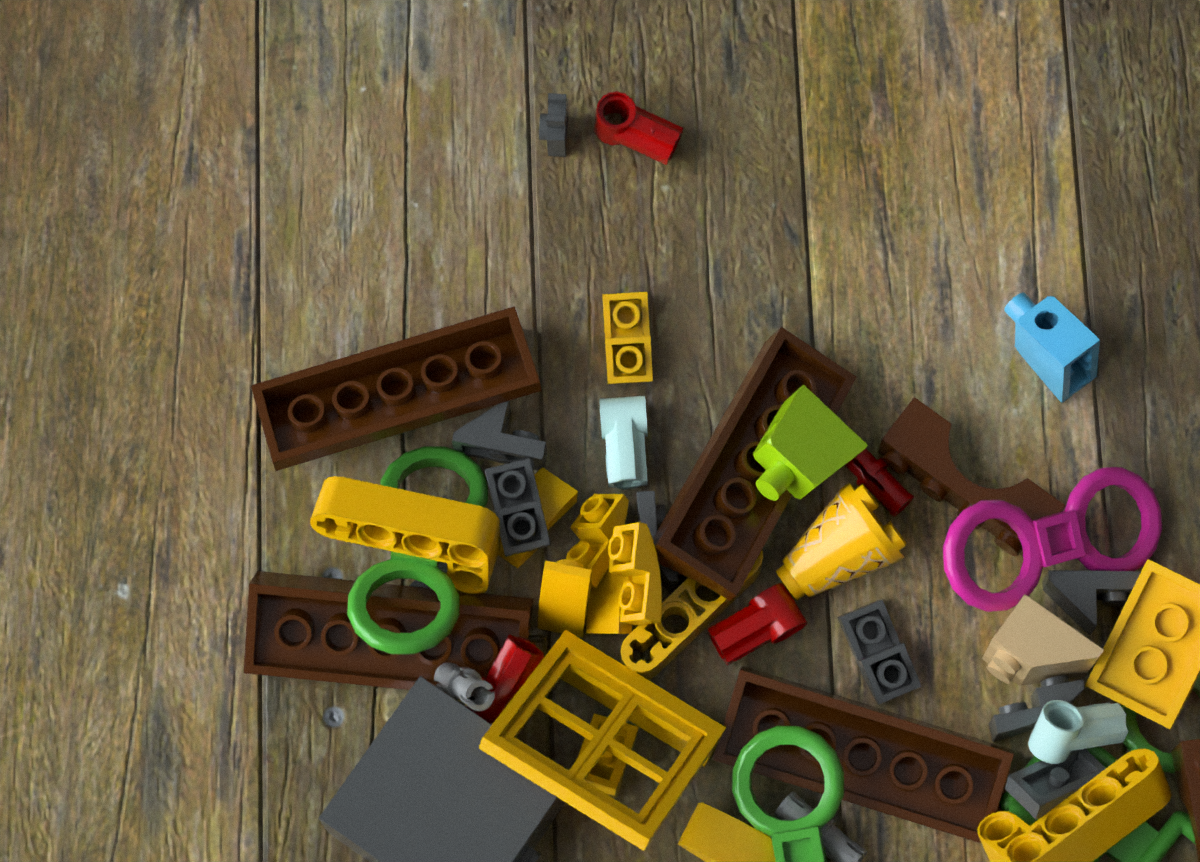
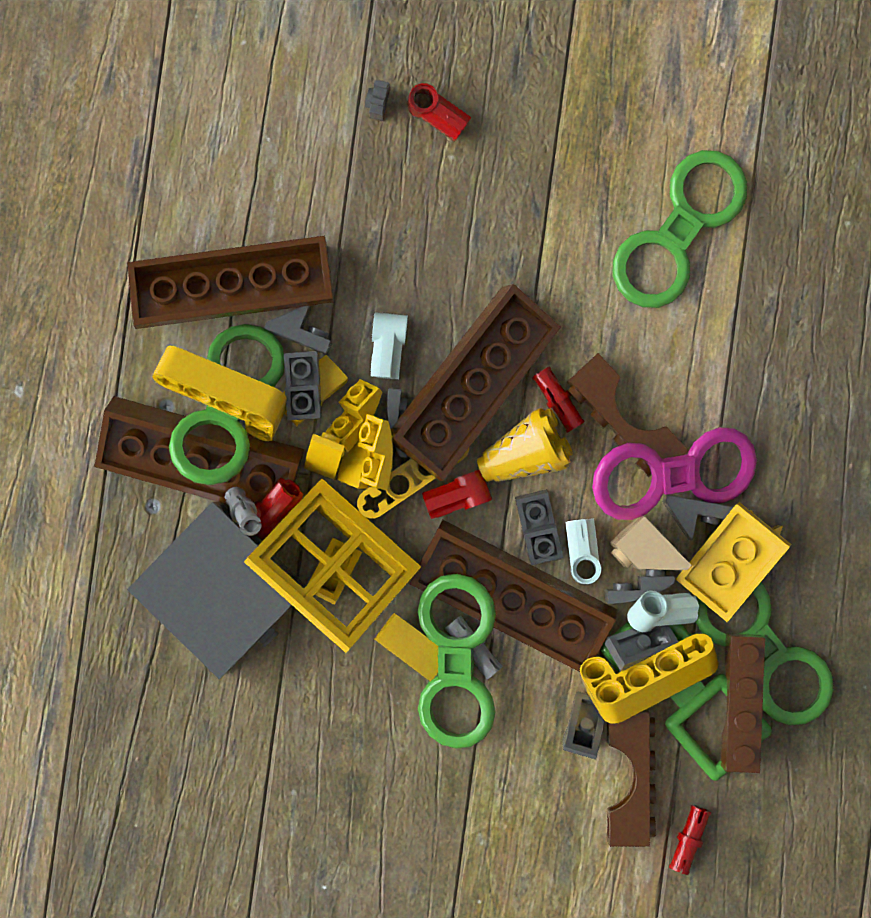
camera: 10 degrees right, 15 degrees up
(627, 338) = (403, 268): yellow slope -> none
(803, 447) = (511, 380): lime torso -> none
(946, 669) = (583, 546): none -> light aqua piece
(989, 226) = (680, 228): none -> bright green bar
(1054, 344) = (709, 340): medium azure torso -> none

